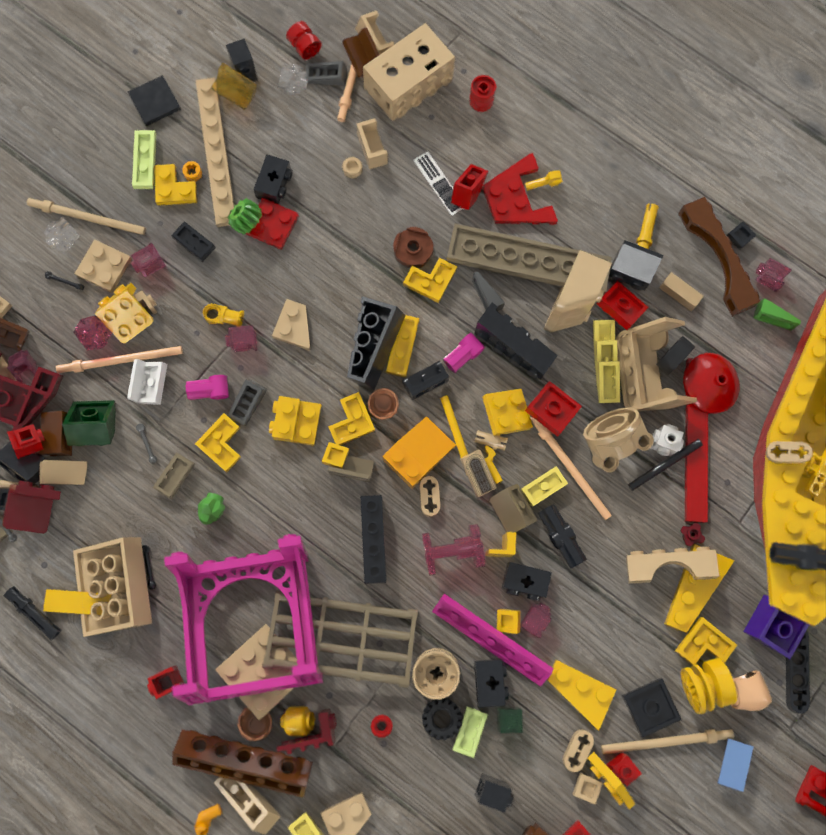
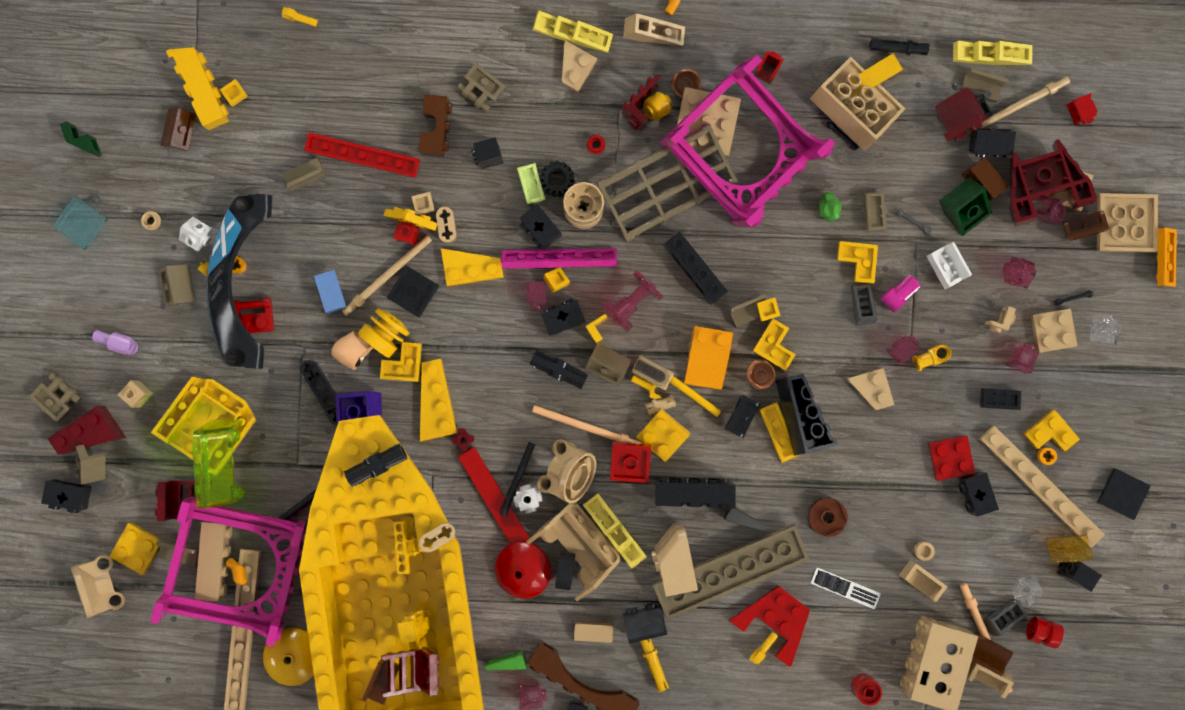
camera: 160 degrees right, 10 degrees up
(29, 446) = (995, 155): red window -> none
(50, 207) = (1133, 347): tan bar -> none
(63, 472) = (957, 155): tan slope -> none
(79, 365) = (1008, 243): light nougat bar -> none
(123, 313) = (1008, 303): yellow bracket -> none
(144, 159) = (1091, 438): yellowish green plate -> none
(244, 216) = (976, 446): bright green gear -> none
(251, 772) = (700, 36): reddish brown brick -> none
(295, 421) = (817, 315): yellow plate -> none
(424, 496) = (680, 327): tan beam -> none
(432, 284) = (789, 498): yellow plate -> none
(467, 349) = (727, 463): dark pink piece -> none
(468, 186) = (820, 599): red slope -> none
(509, 720) = (509, 210): clear green brick -> none
(544, 486) = (596, 397): light yellow plate -> none
(622, 305) = (632, 584): red plate -> none
(700, 563) = (483, 387): tan arch -> none

